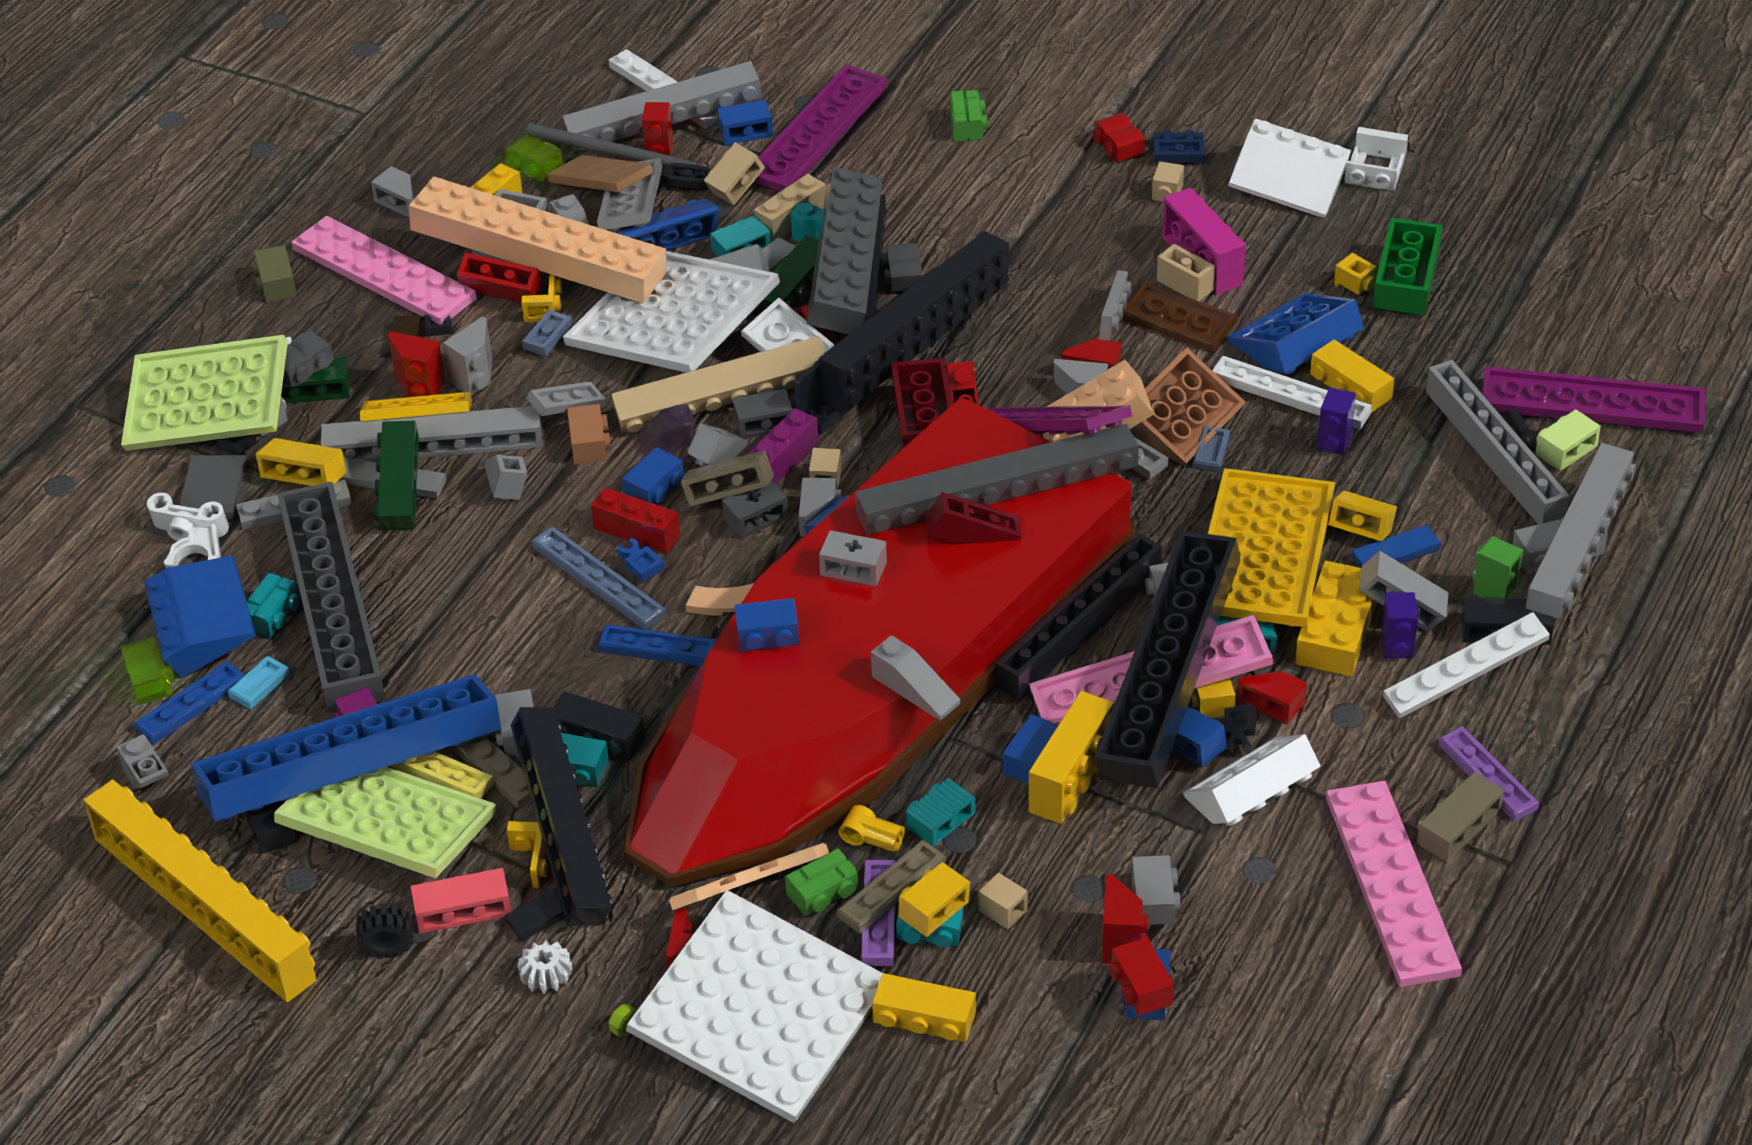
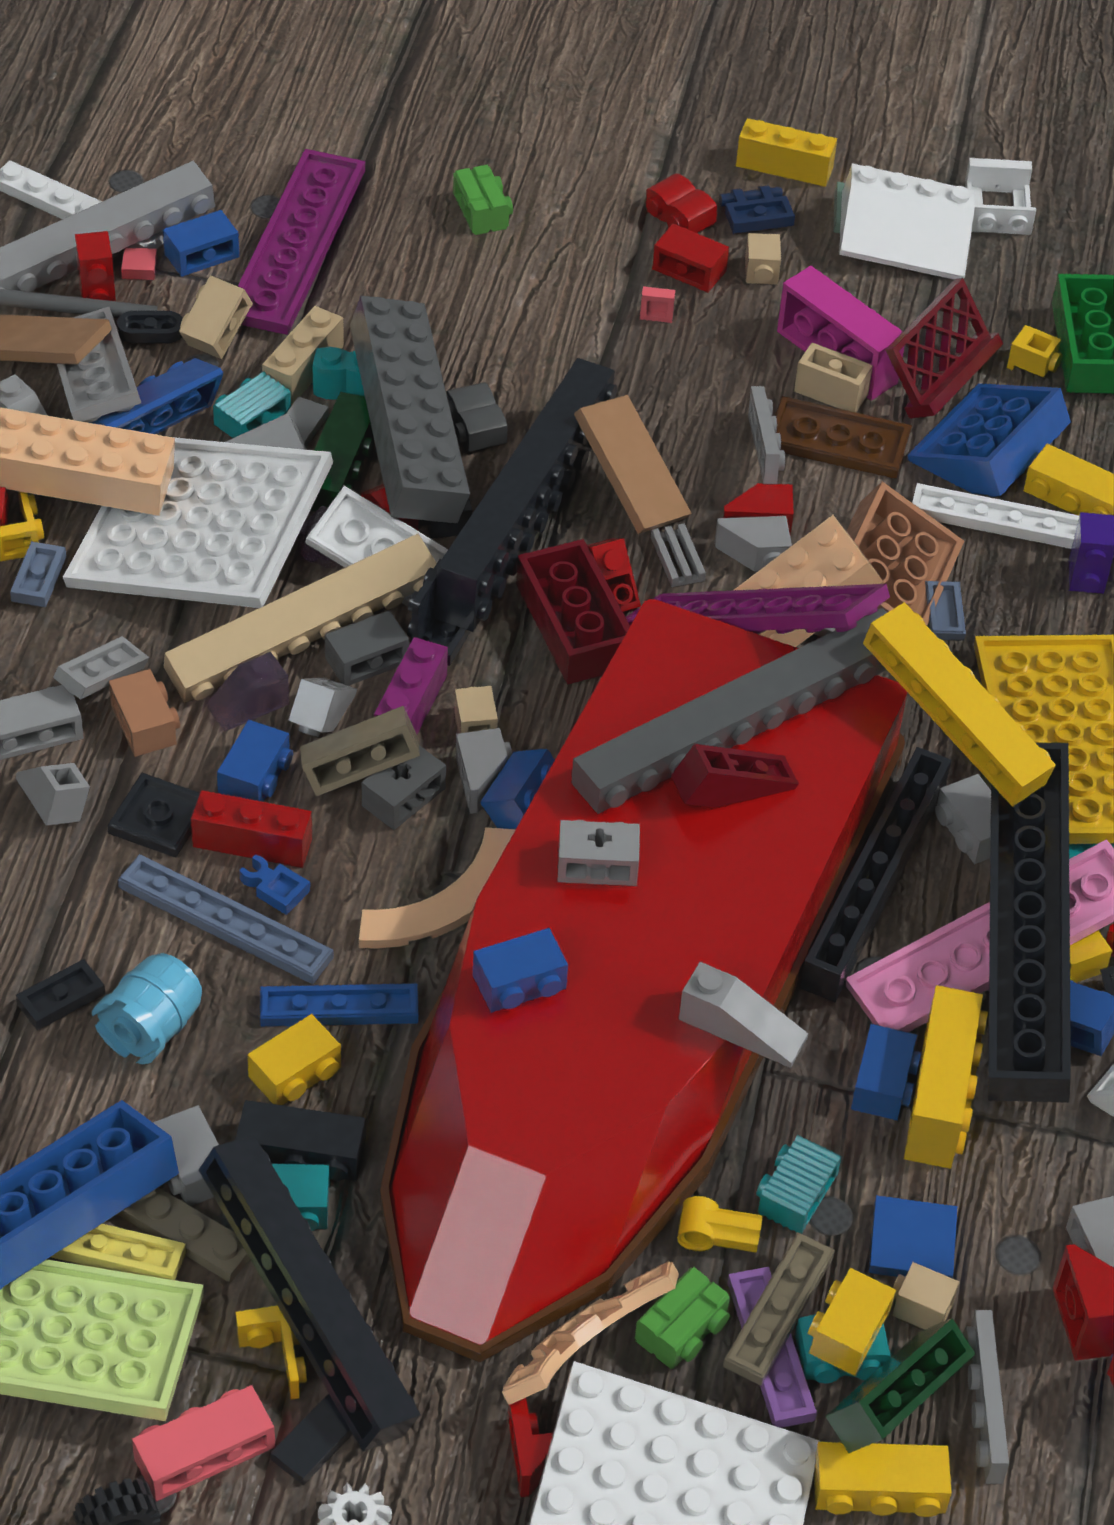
camera: 20 degrees left, 5 degrees up
(465, 607) = (60, 994): none -> black plate
(519, 622) = (148, 1007): none -> medium azure piece
(571, 503) = (155, 815): none -> black tile
(610, 674) = (294, 1061): none -> yellow piece
(696, 132) = (139, 263): none -> coral tile
(953, 946) = (900, 1385): none -> dark green brick
(1002, 311) = (632, 464): none -> medium nougat tile
(1014, 858) = (911, 1233): none -> blue tile
(1020, 369) = (671, 536): none -> light grey tile
(1024, 961) = (988, 1410): none -> light grey plate
(1072, 205) = (657, 304): none -> coral tile
(1111, 175) = (690, 257): none -> red brick
(1156, 496) = (959, 704): none -> yellow brick
(1216, 107) = (786, 152): none -> yellow brick
(1290, 277) = (953, 369): none -> dark red fence

